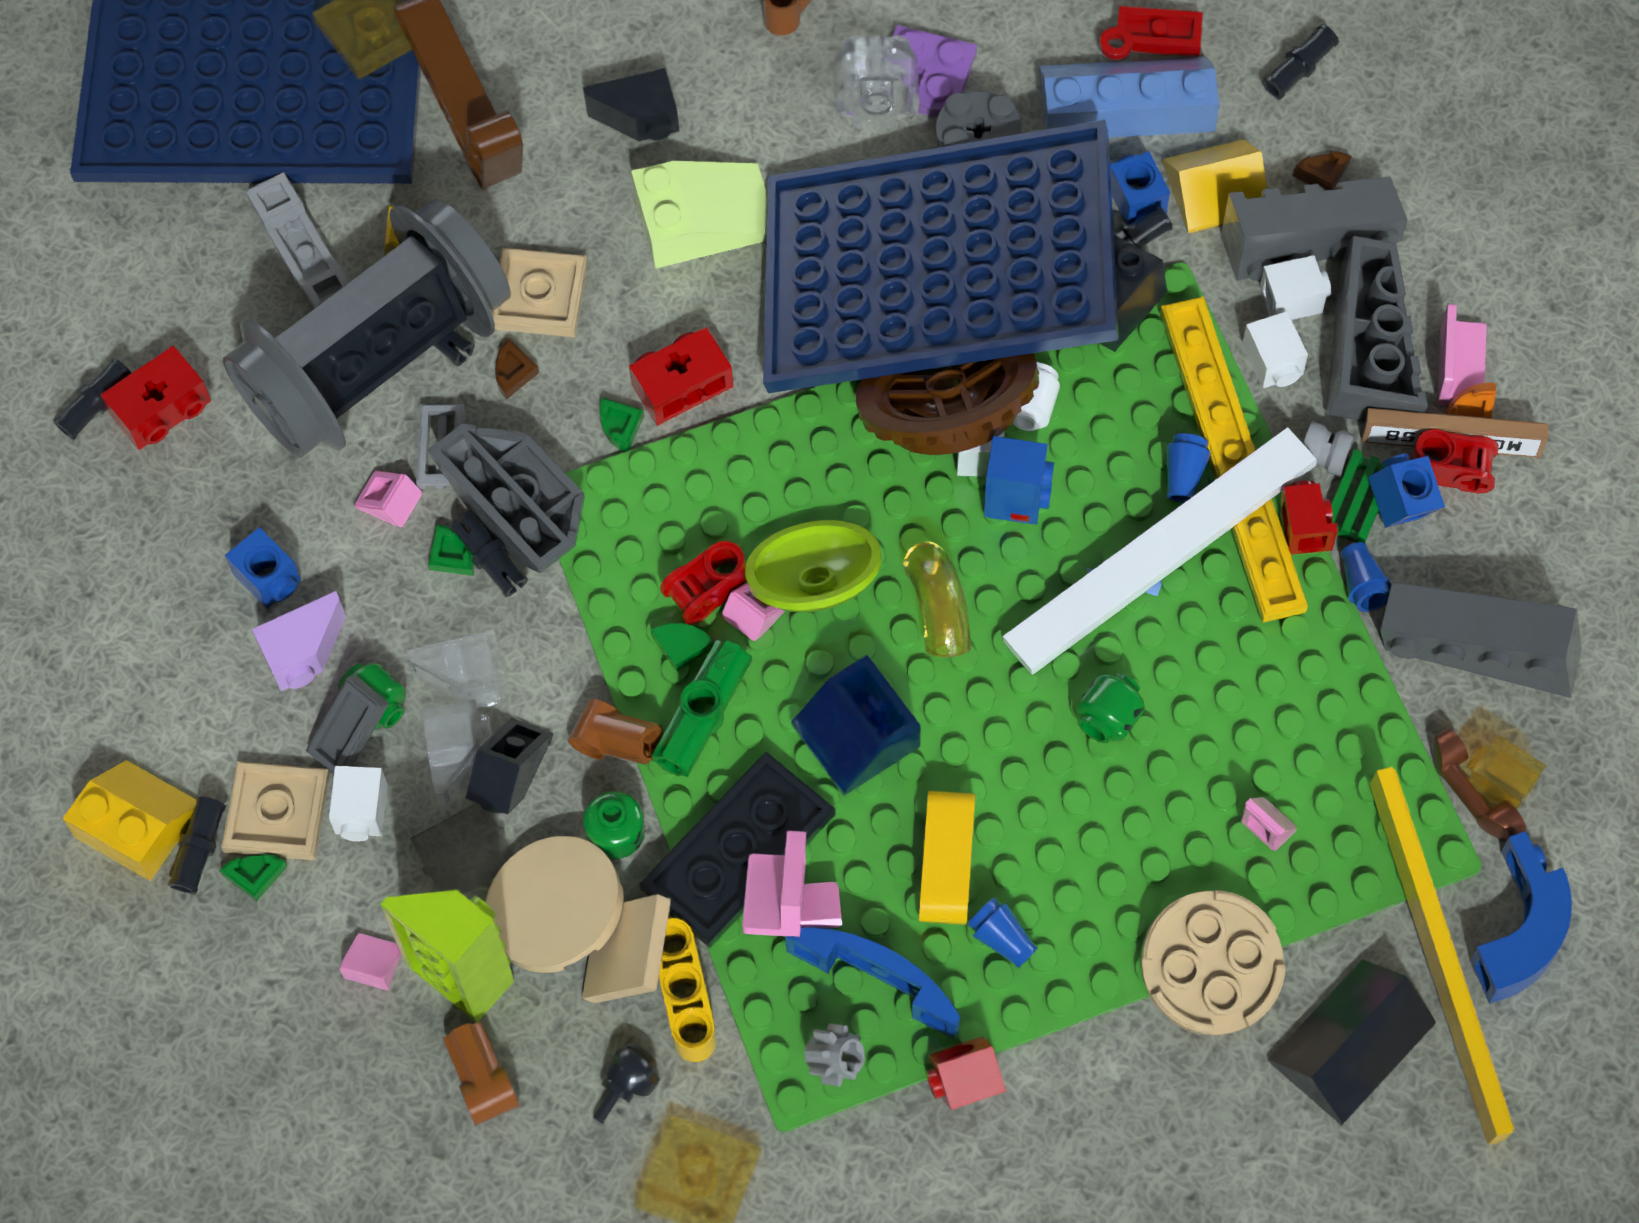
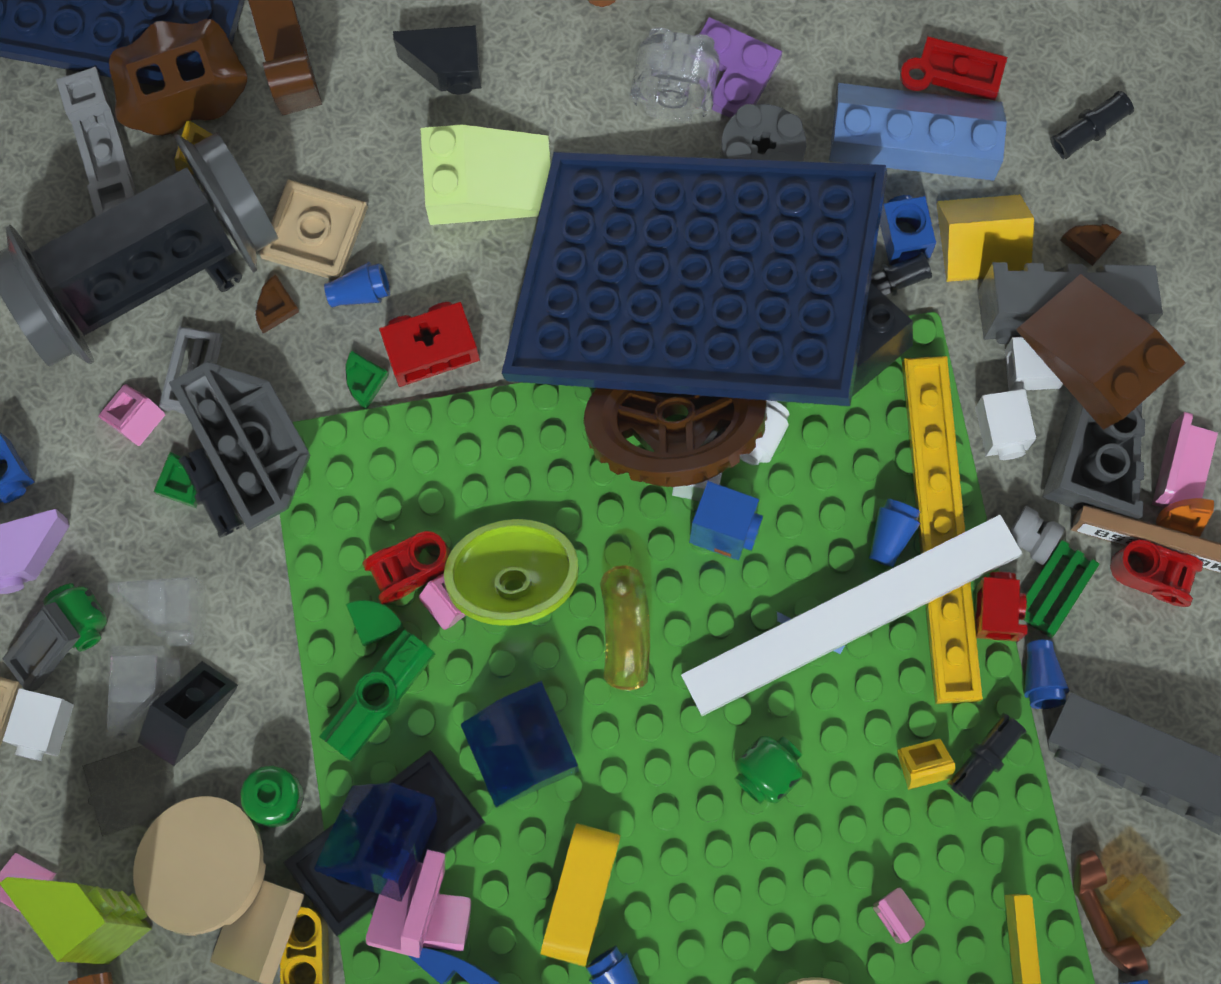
camera: 10 degrees right, 10 degrees up
(380, 187) = (180, 100): none -> reddish brown piece
(596, 335) = (359, 286): none -> blue cone
(607, 731) = (287, 699): dark orange piece -> none
(736, 830) = (379, 838): none -> clear blue slope
(1265, 678) = (926, 763): none -> yellow slope
(1323, 658) = (986, 757): none -> black pin
(1351, 255) = (1100, 350): none -> reddish brown slope
(1394, 501) = (1119, 599): blue brick -> none

